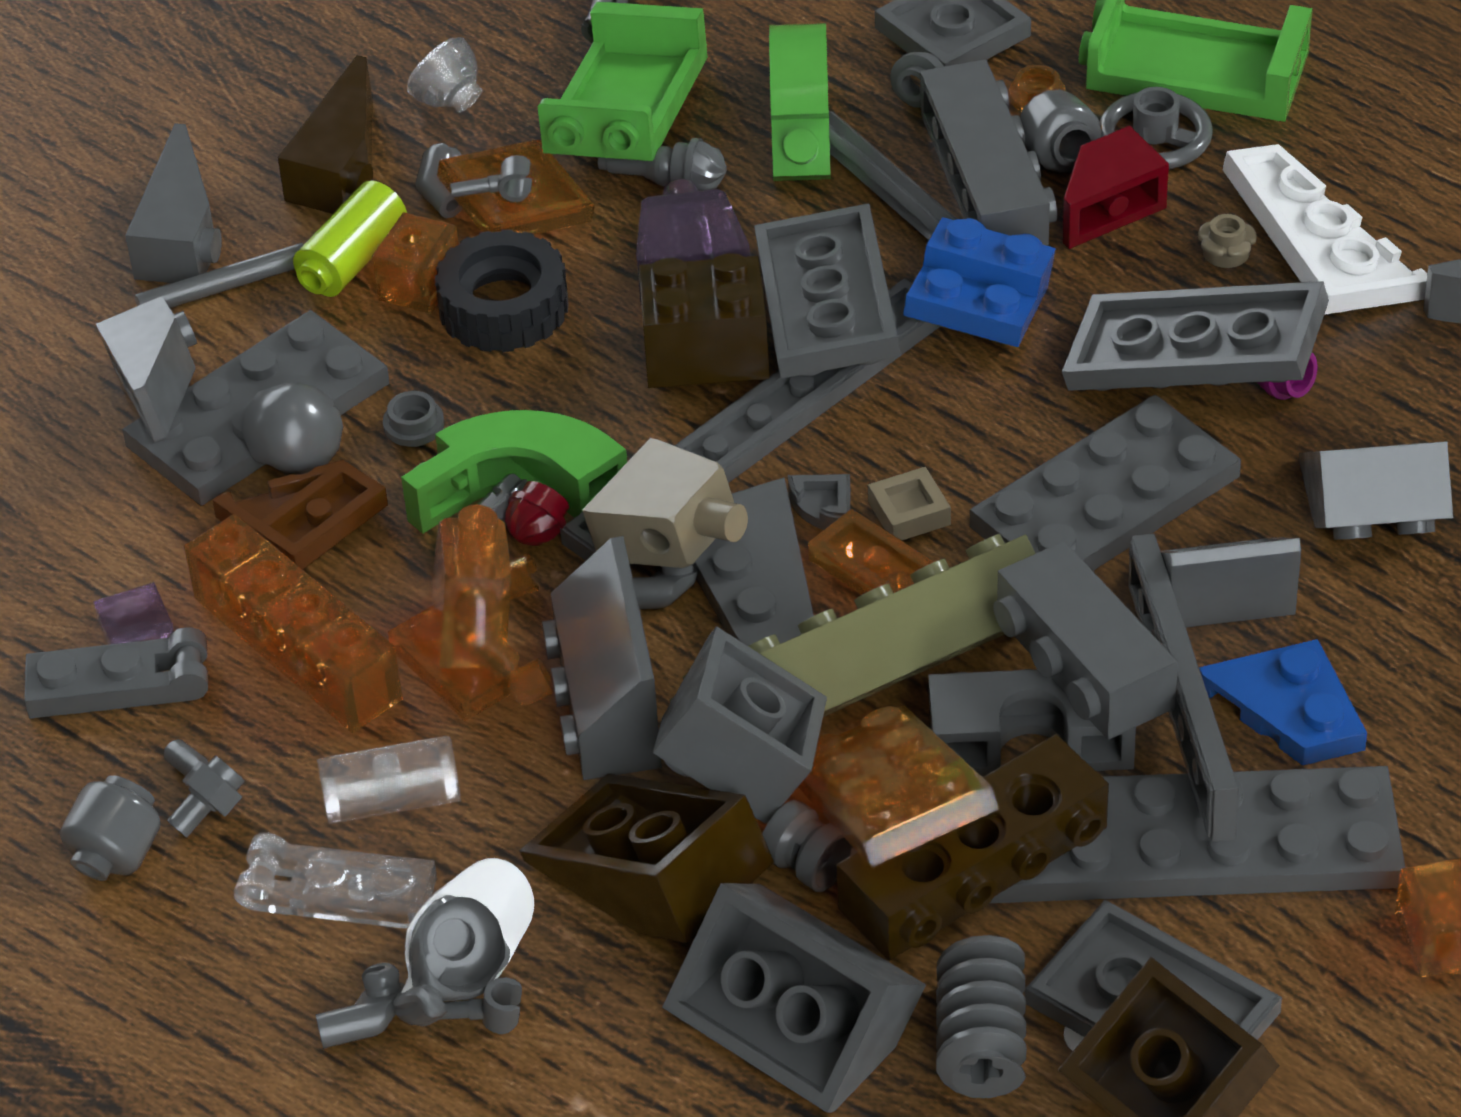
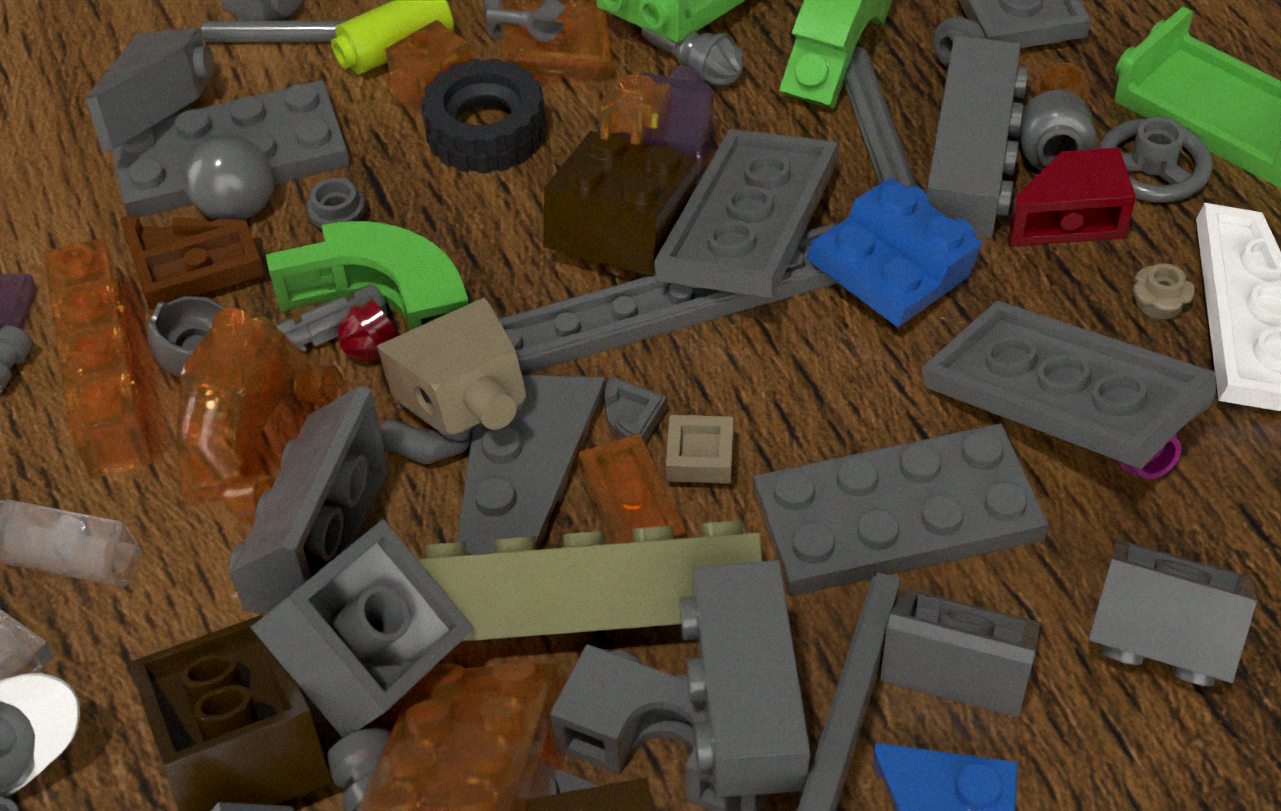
camera: 25 degrees right, 5 degrees up
(375, 576) = (178, 329): none -> dark grey hair
(670, 228) = (633, 105): none -> clear orange plate

